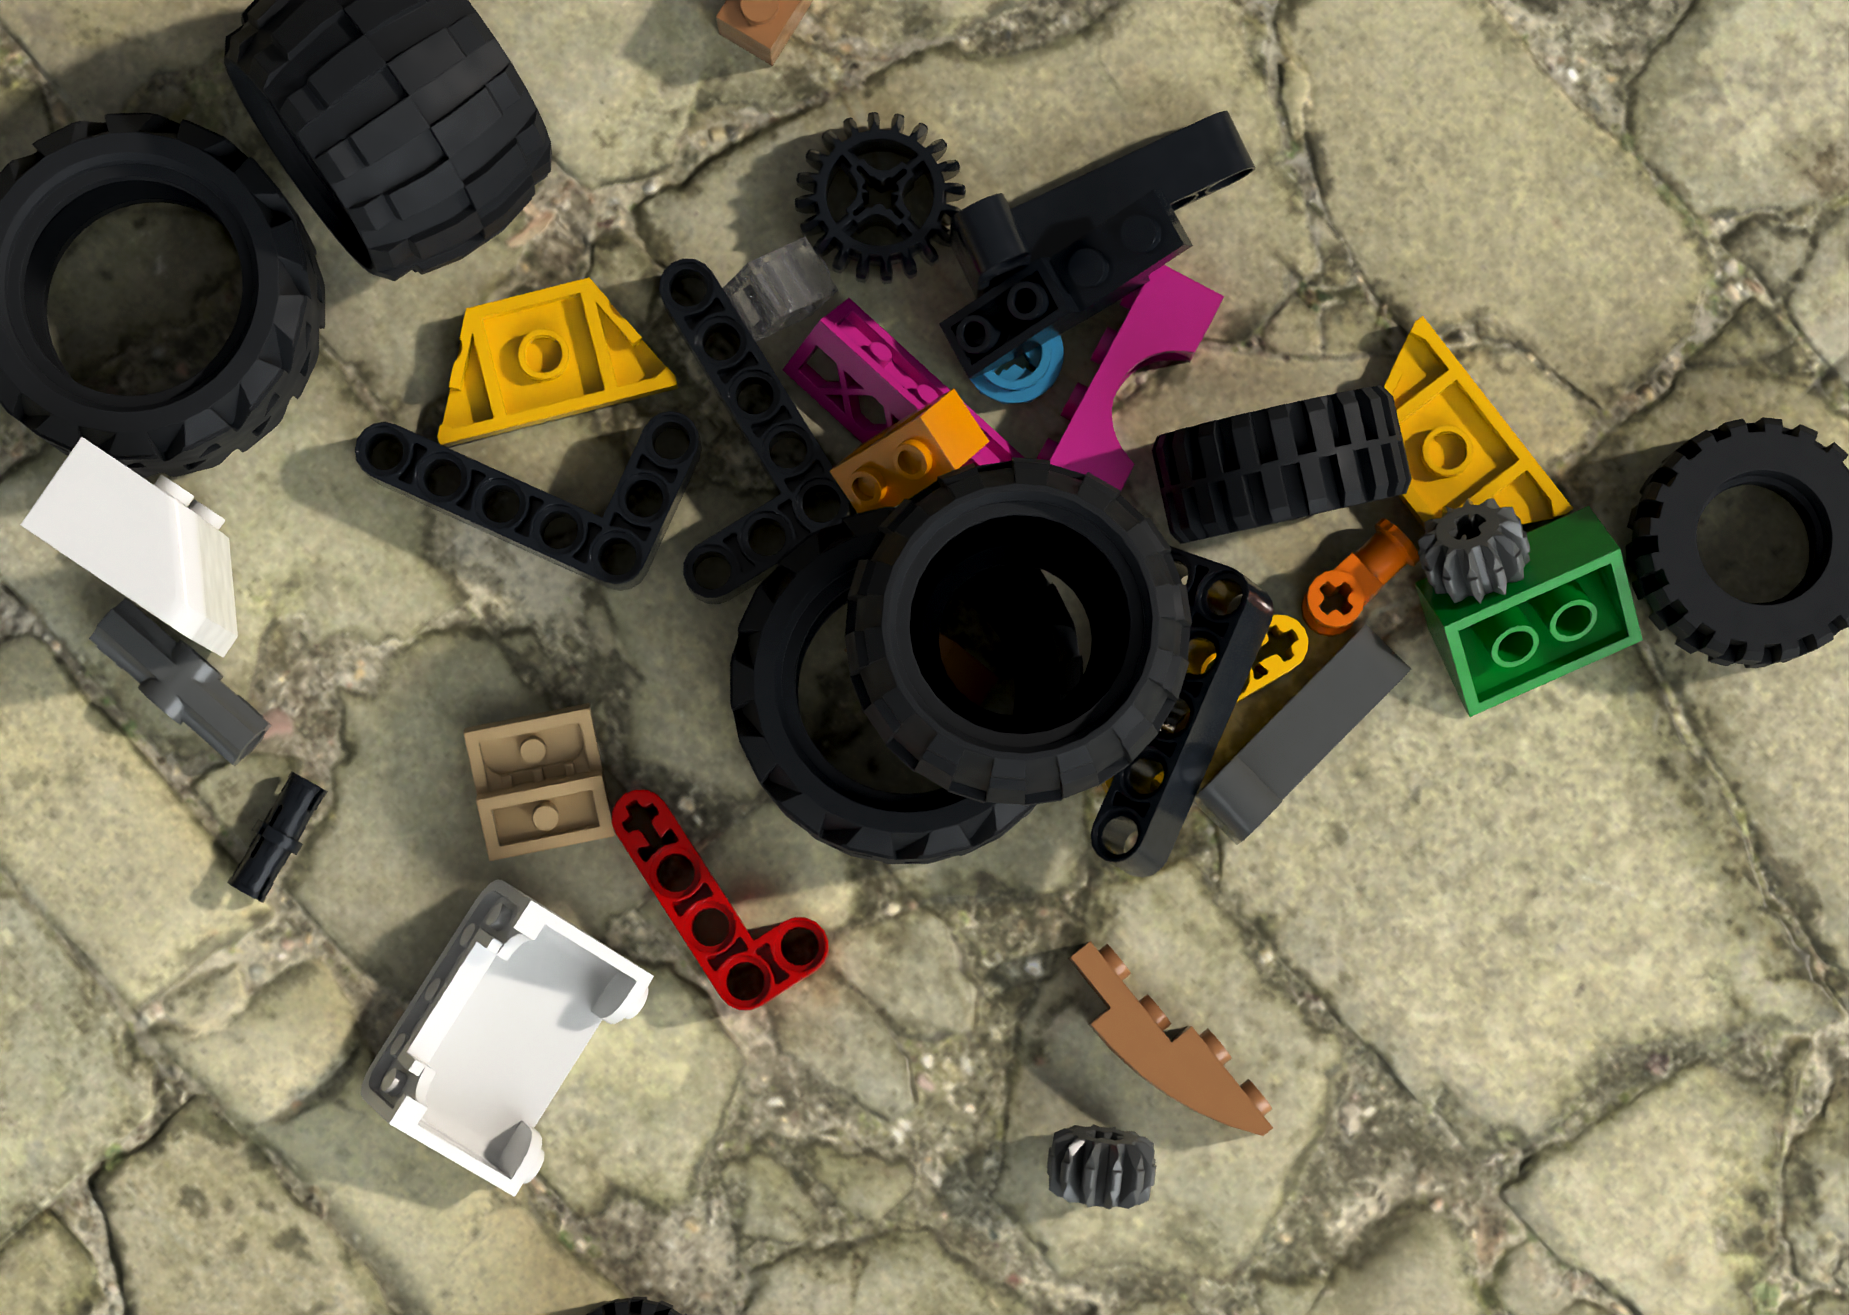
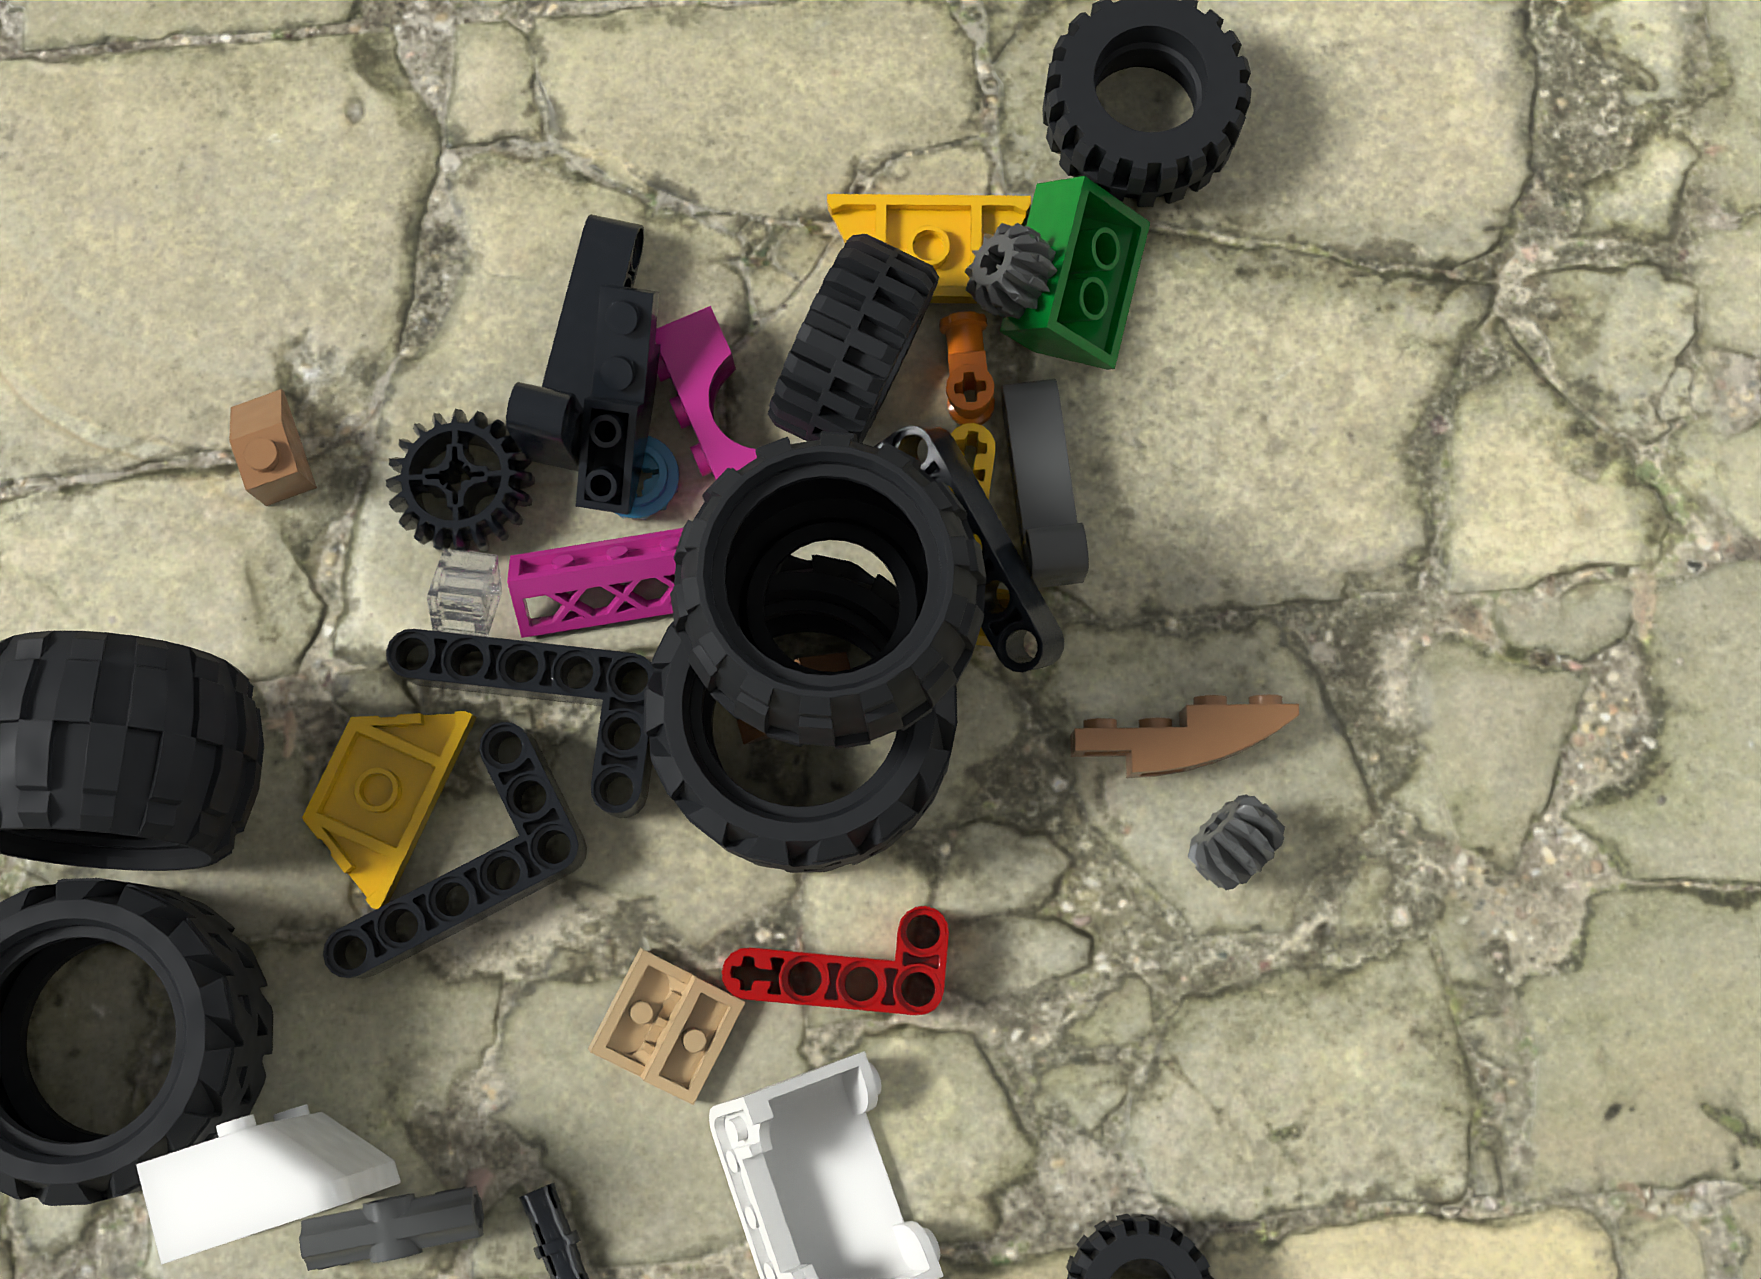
camera: 45 degrees left, 5 degrees down
(910, 454) = (645, 590): light orange brick -> none

